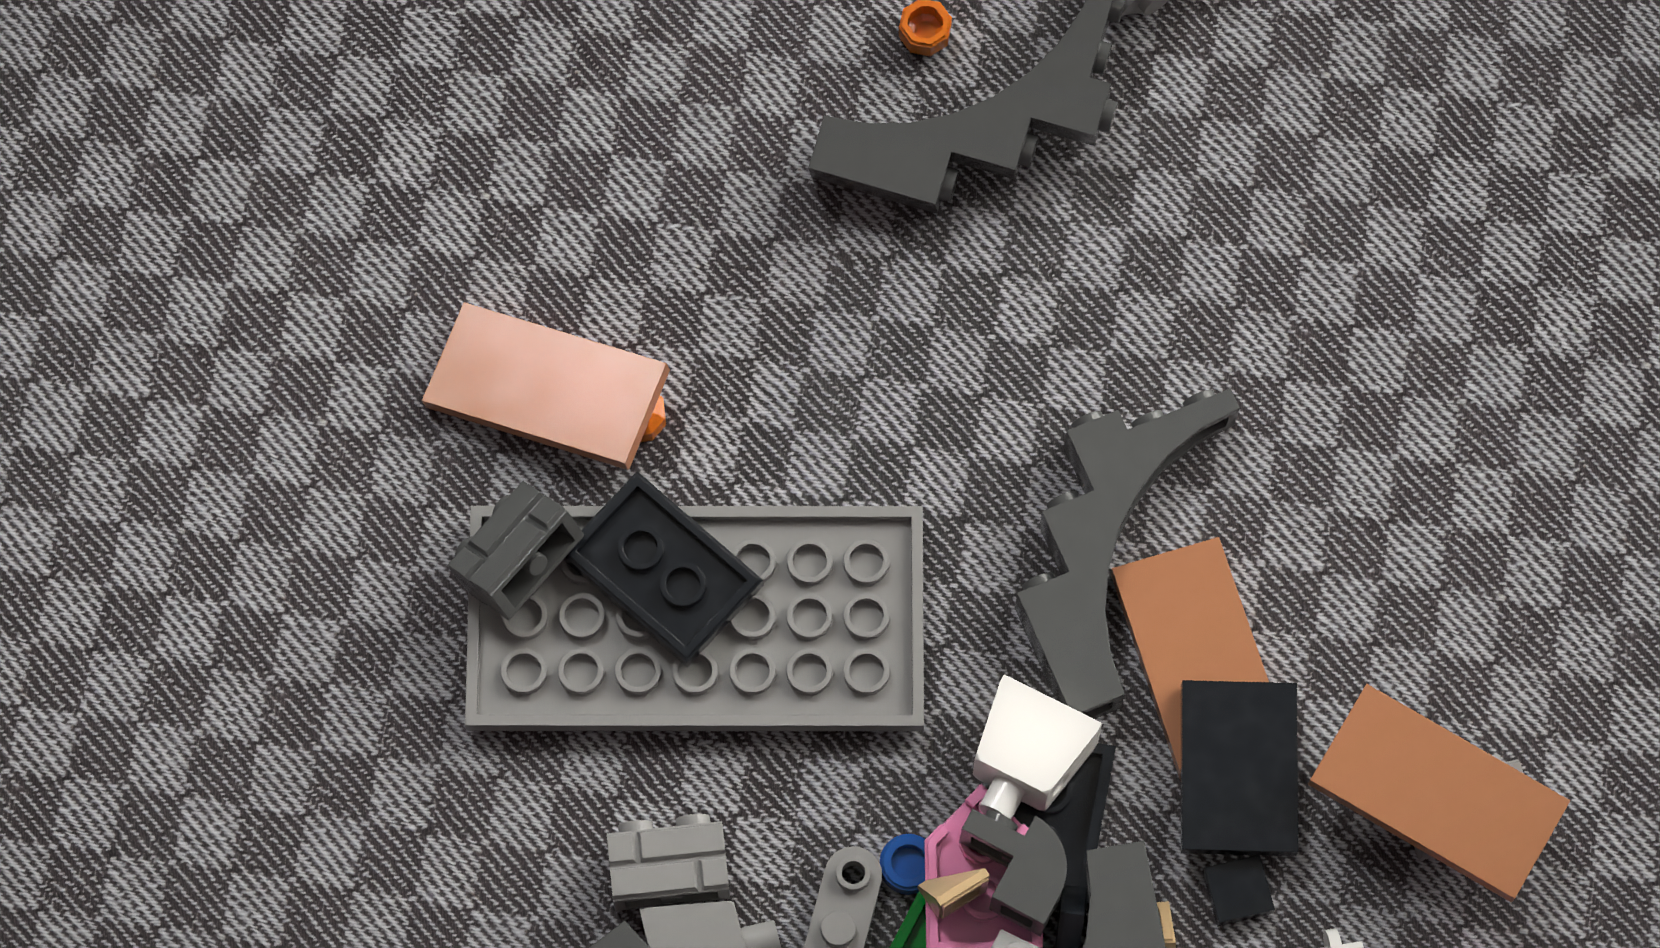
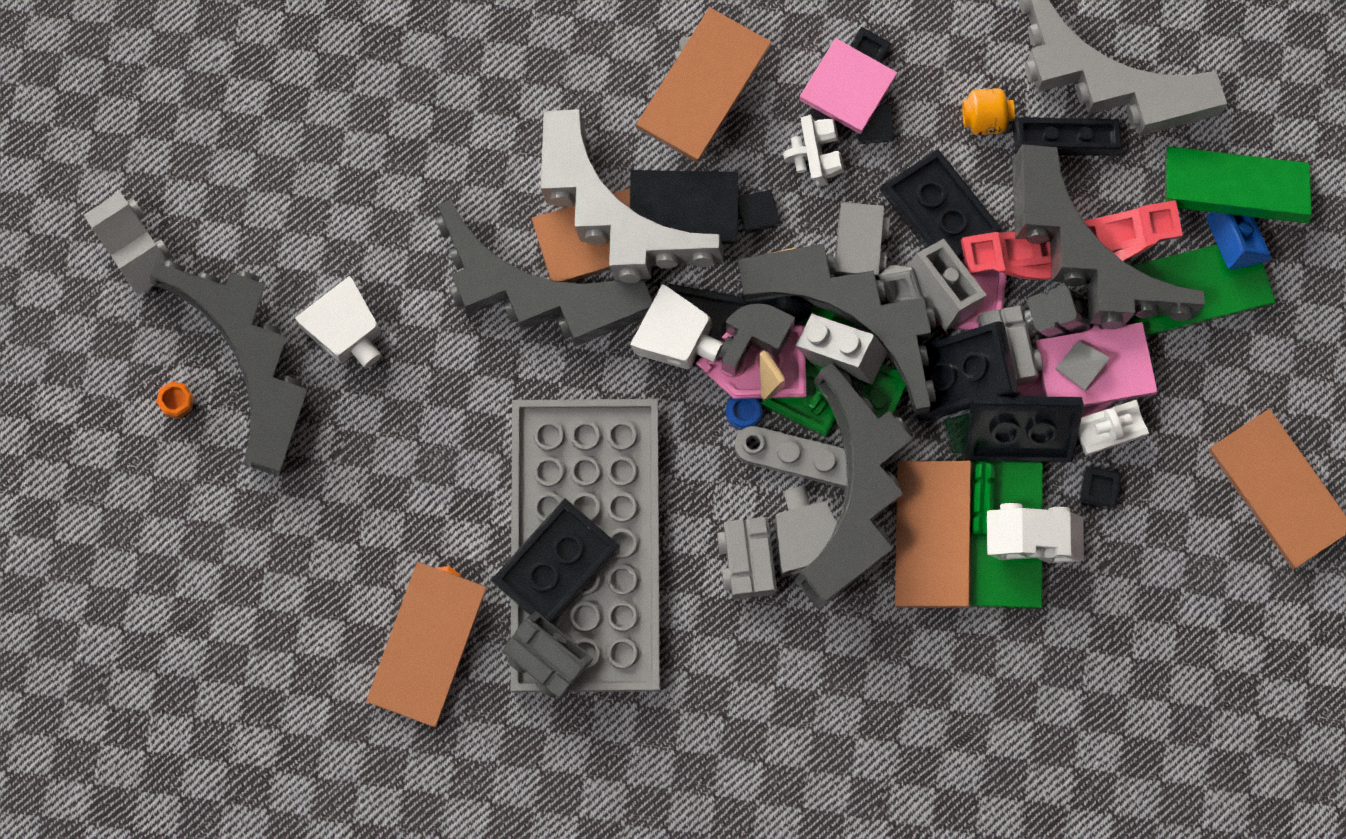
camera: 90 degrees left, 5 degrees up
(1042, 259) = (342, 324): none -> white torso
(1277, 592) = (601, 217): none -> arch

